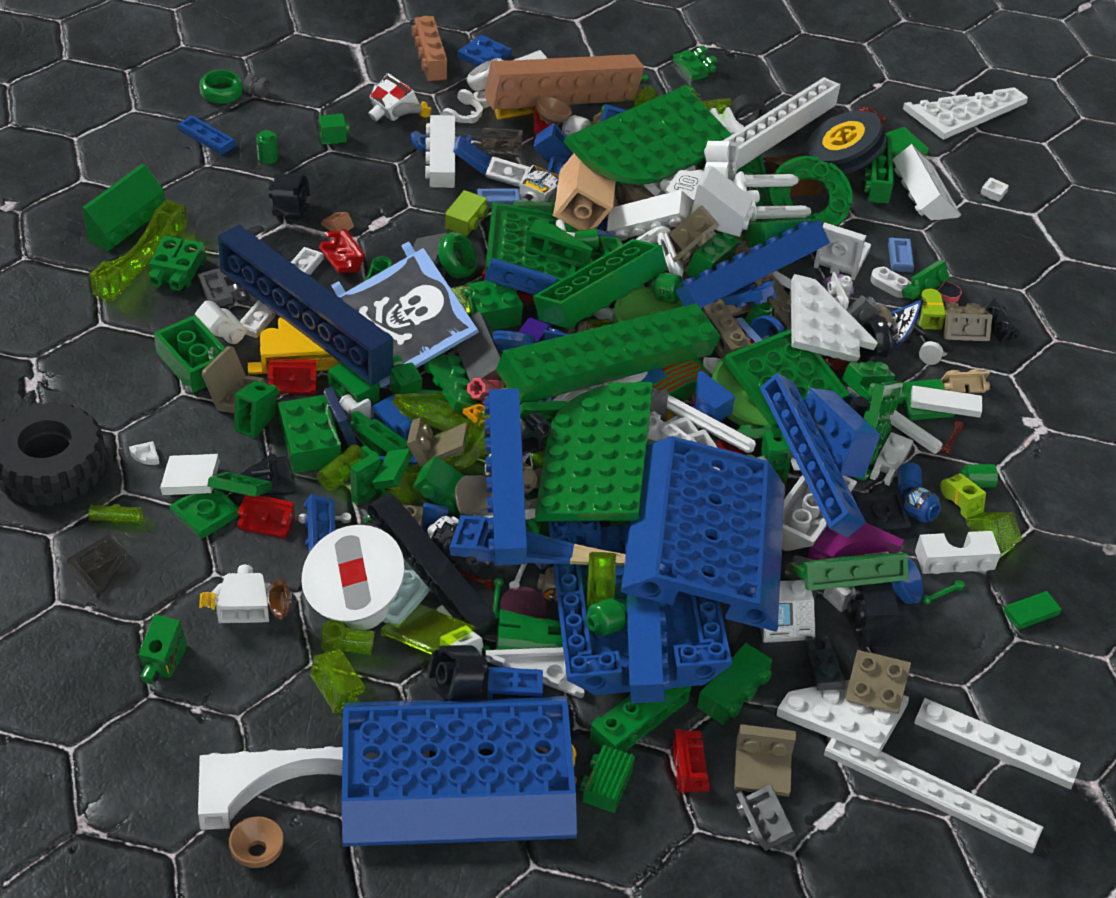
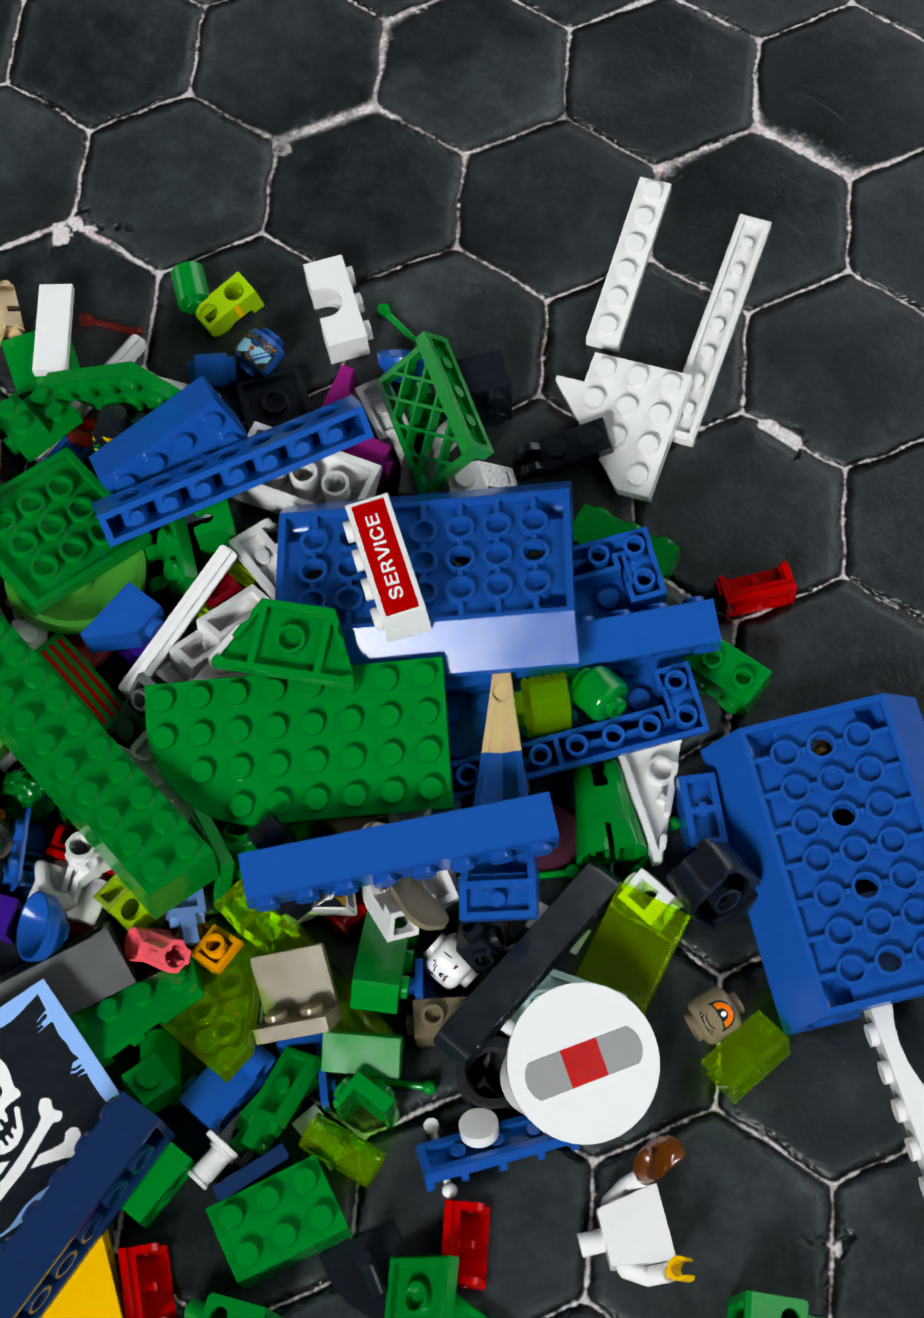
camera: 90 degrees left, 20 degrees up
(331, 524) = (479, 1127): none -> white tile
(336, 636) = (674, 1057): clear neon green piece -> none
(369, 664) = (714, 1015): none -> dark tan head
(608, 778) = (811, 678): green brick -> none
(659, 437) = (290, 644): none -> green wing
(707, 489) = (387, 567): none -> brick
(763, 759) = (737, 506): dark tan bracket -> none
(766, 817) = (815, 495): dark grey bracket -> none
(878, 681) = (592, 378): dark tan bracket -> none
(1001, 524) = (283, 268): clear neon green slope -> none
(1032, 610) = (410, 228): green tile -> none

